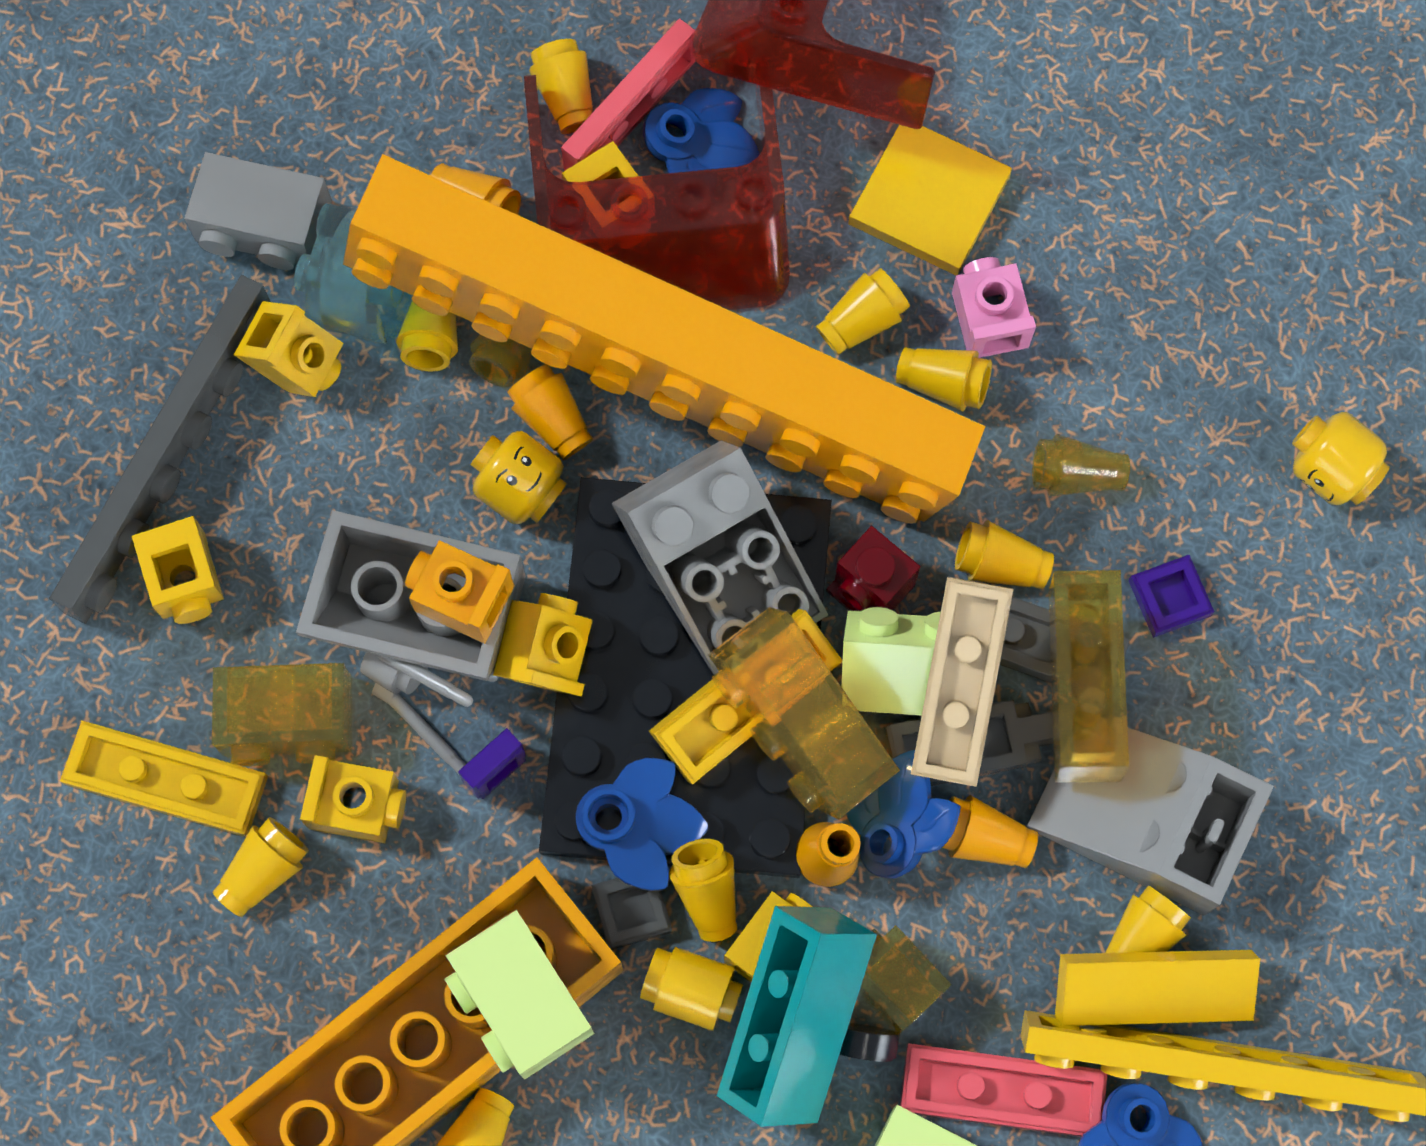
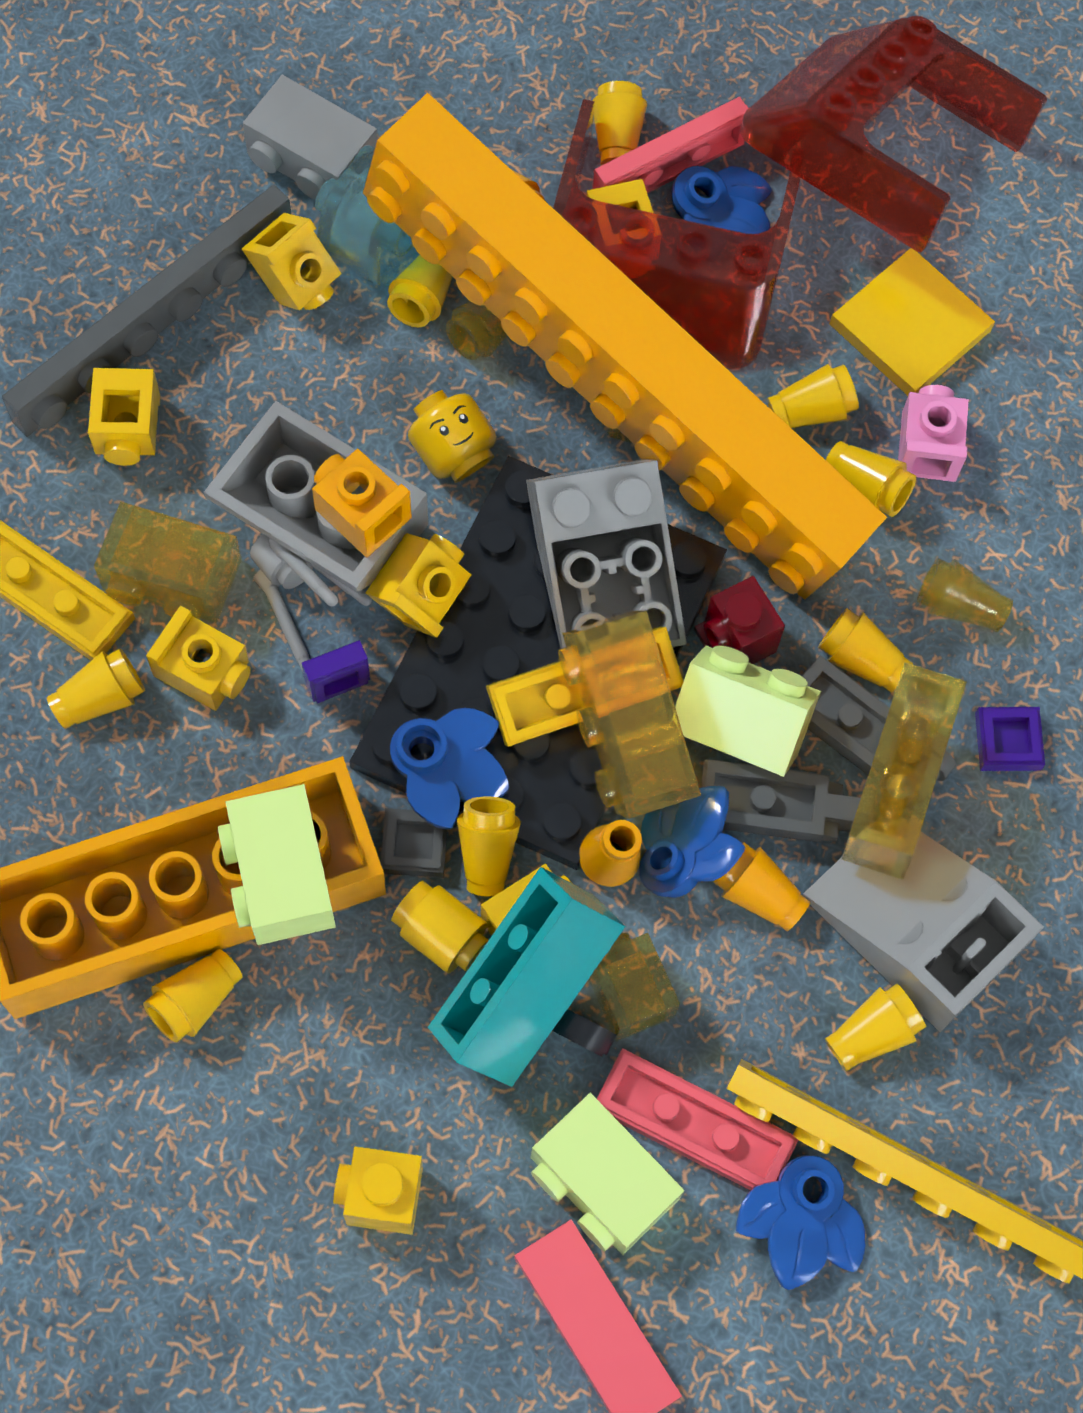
camera: 15 degrees right, 5 degrees down
(550, 410) = (502, 389): light orange cone -> none
(962, 681) = (785, 732): tan tile -> none
(1157, 987) = (872, 1076): yellow tile -> none

